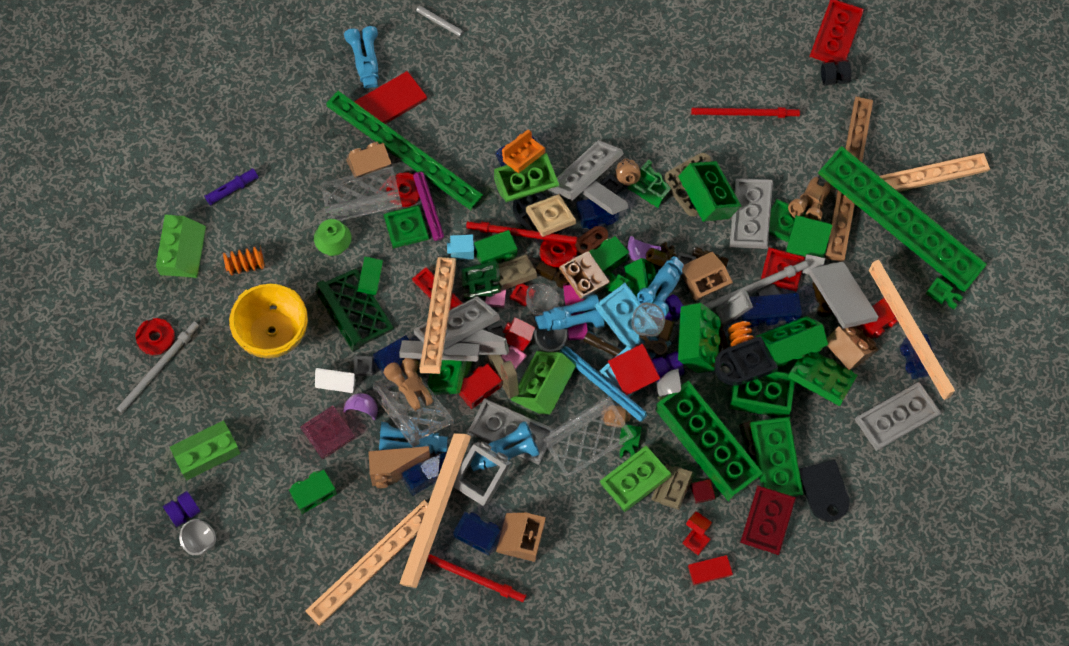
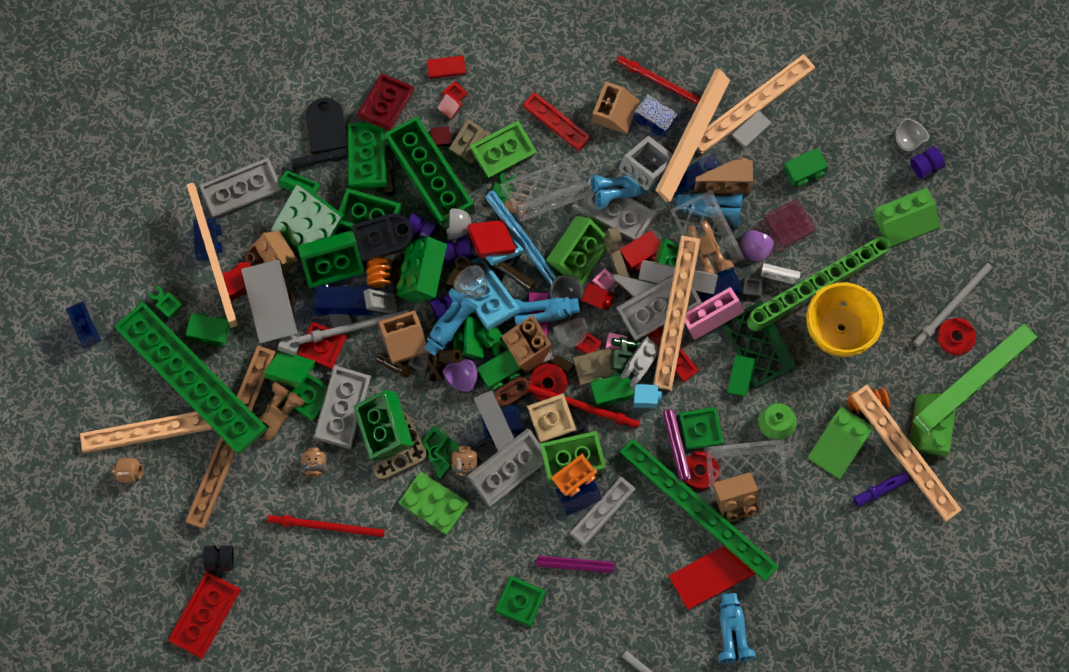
camera: 170 degrees left, 5 degrees up
(136, 281) = (974, 379): none -> bright green beam
(208, 215) = (906, 453): none -> light nougat tile
(269, 224) = (840, 442): none -> bright green slope
(285, 365) = (810, 286): none -> bright green beam
(372, 532) = (751, 129): none -> light grey tile
(400, 326) = (713, 313): none -> bright pink brick
(470, 272) = (640, 361): none -> light grey hinge
(486, 154) = (602, 511): none -> light grey tile
(504, 100) = (575, 564): none -> magenta axle
(559, 66) = (520, 601): none -> green tile
(583, 521) = (556, 121): none -> red tile
(650, 139) = (433, 503): none -> bright green plate
(707, 386) = (421, 227): none -> dark purple wheel
(768, 161) = (313, 462): none -> medium nougat head
(835, 450) = (307, 161): none -> black piece
(839, 423) = (290, 180): none -> green tile
(899, 268) = (208, 329): none -> green brick
(937, 138) = (127, 470): none -> medium nougat head
(1016, 259) = (83, 324): none -> clear blue brick

